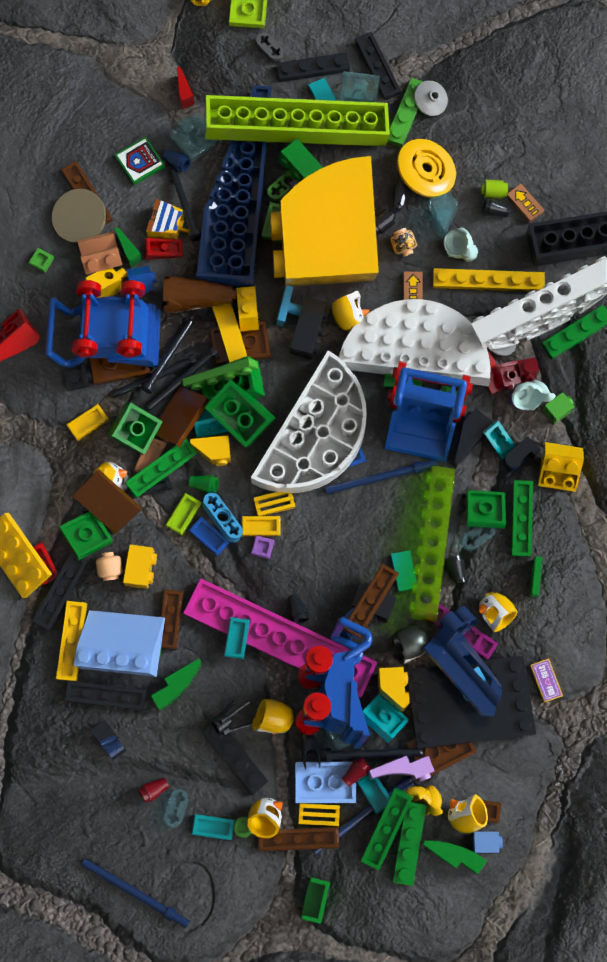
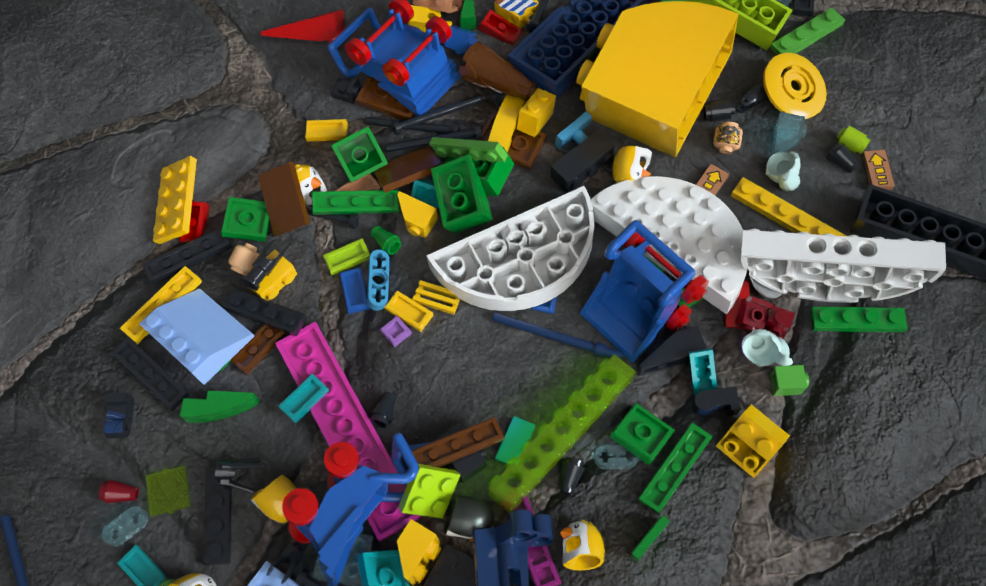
camera: 40 degrees right, 10 degrees down
(134, 565) = (261, 268): none -> black piece
(156, 595) = (264, 312): none -> black plate
(186, 765) = (168, 491): none -> clear neon green piece
(380, 646) = (429, 491): none -> lime plate
(425, 101) = (834, 36): light grey dish -> none

